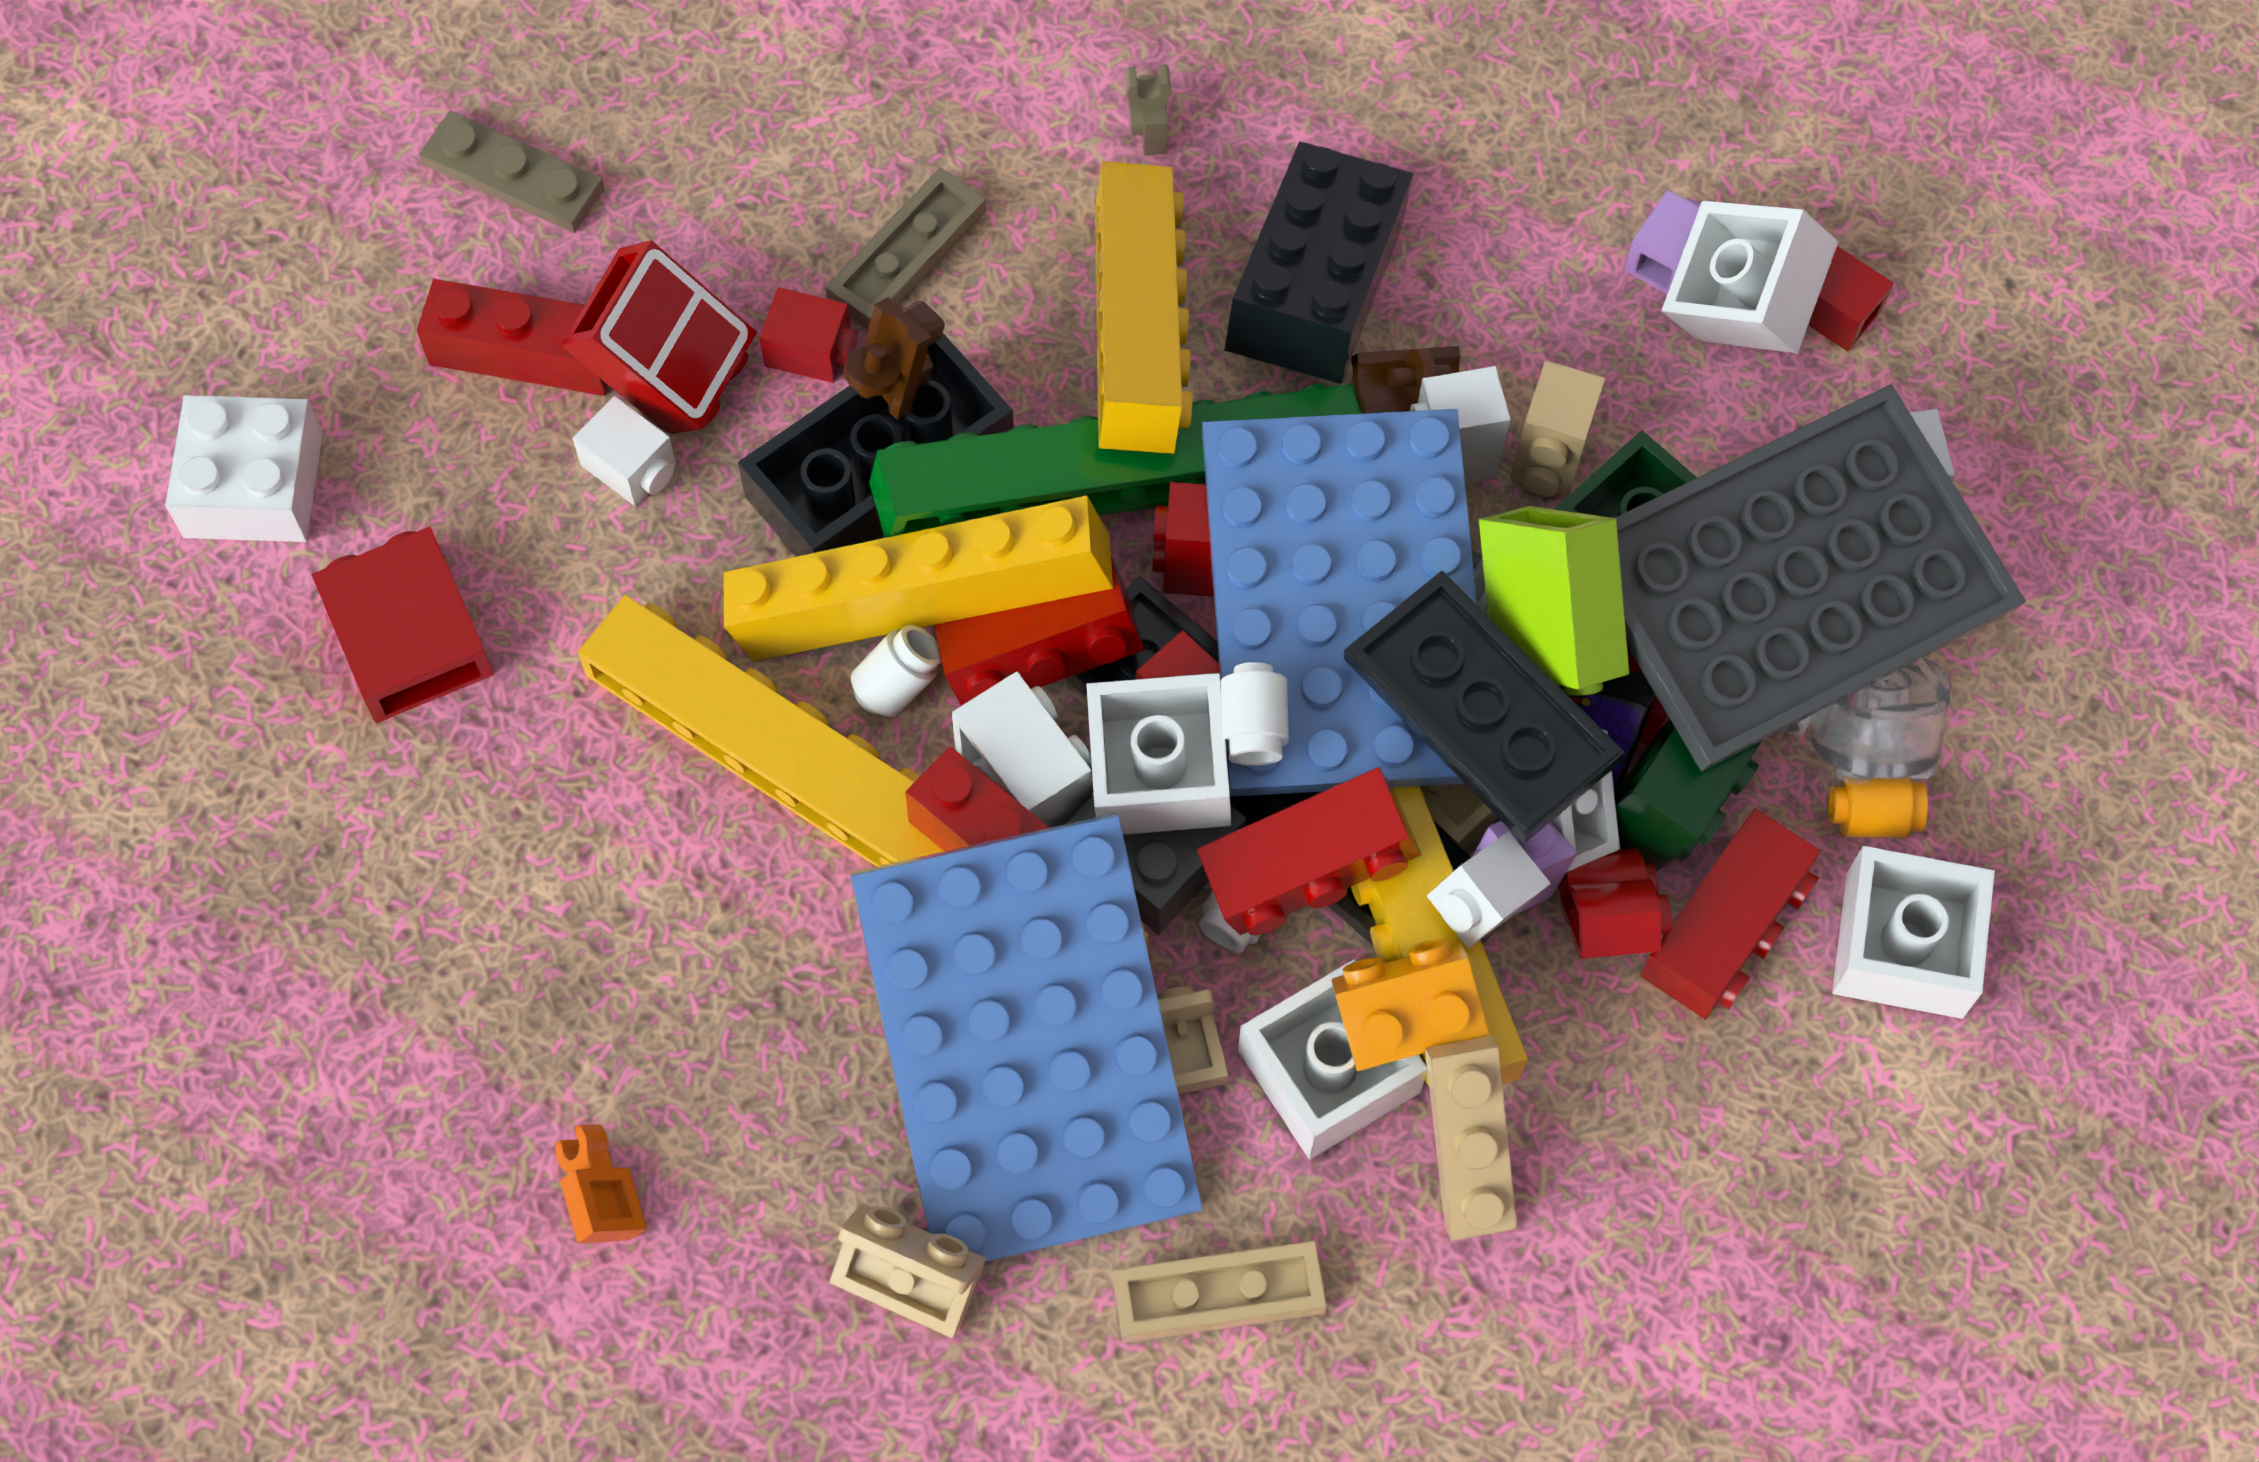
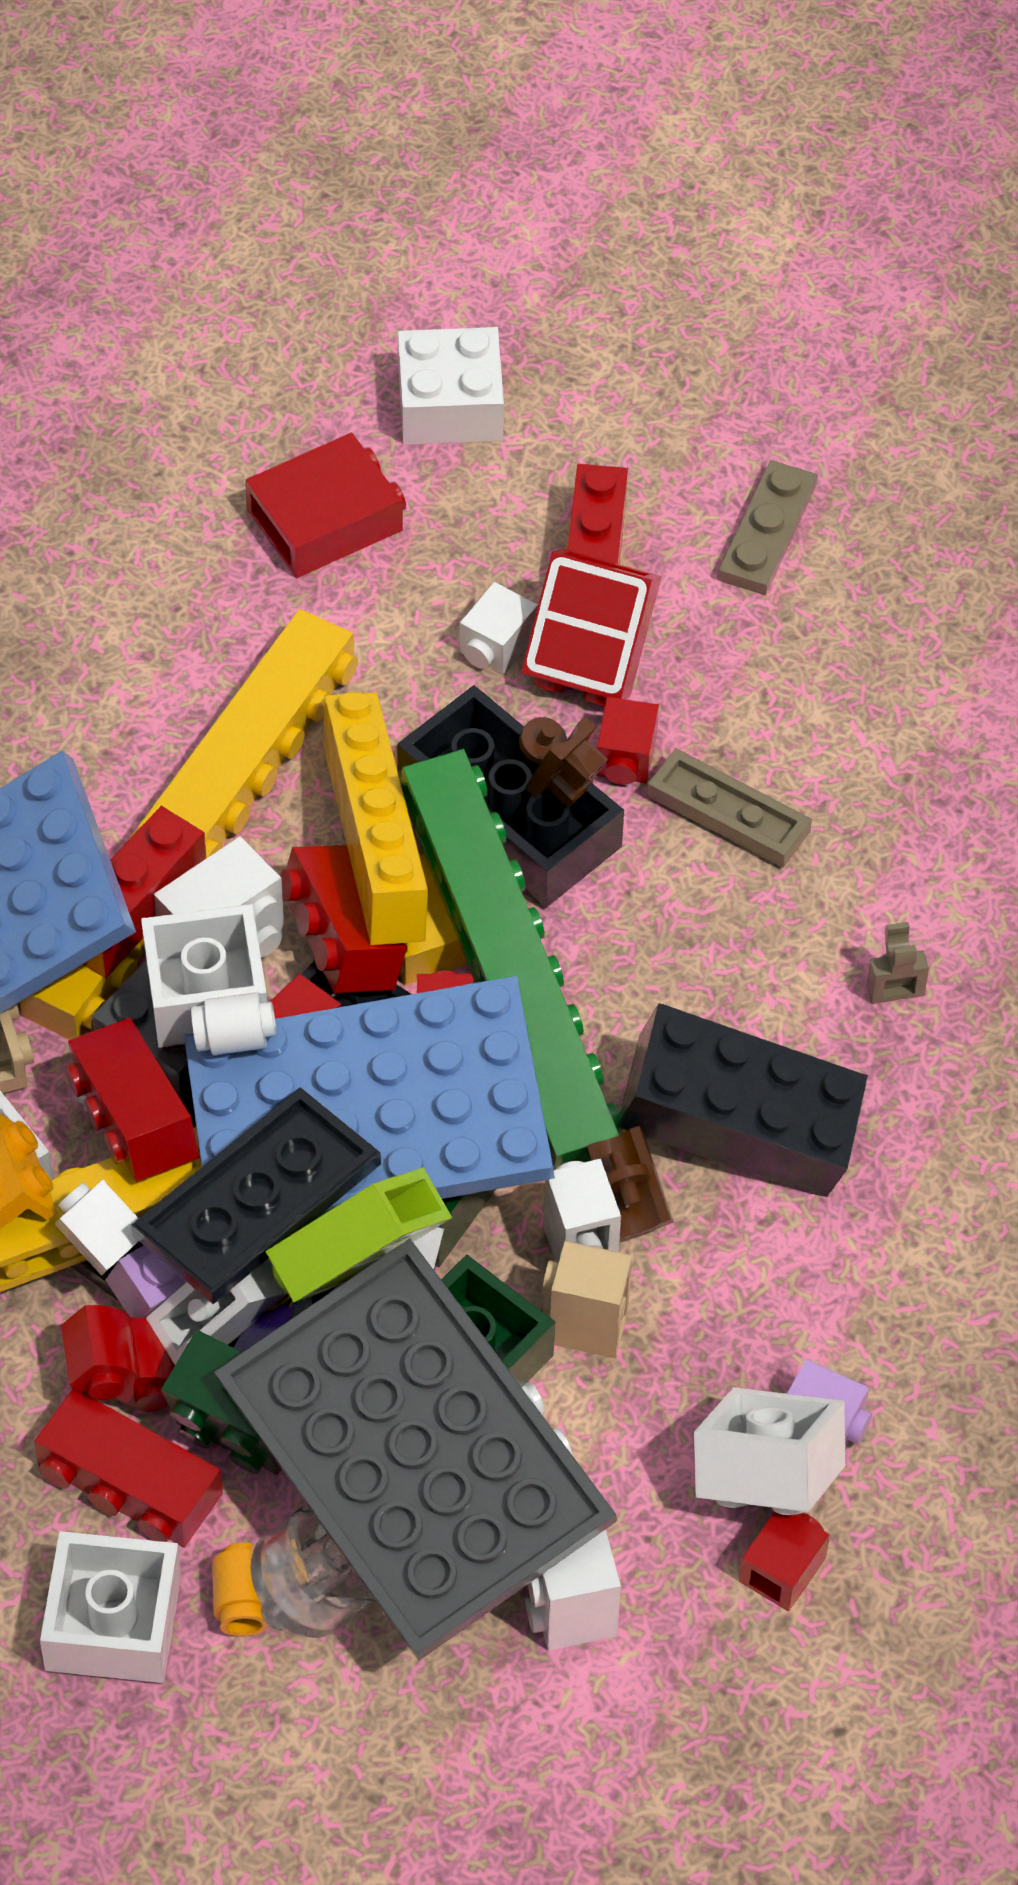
camera: 85 degrees right, 10 degrees down
(896, 671) = (305, 824): white brick -> none
(1139, 311) = (662, 951): yellow brick -> none

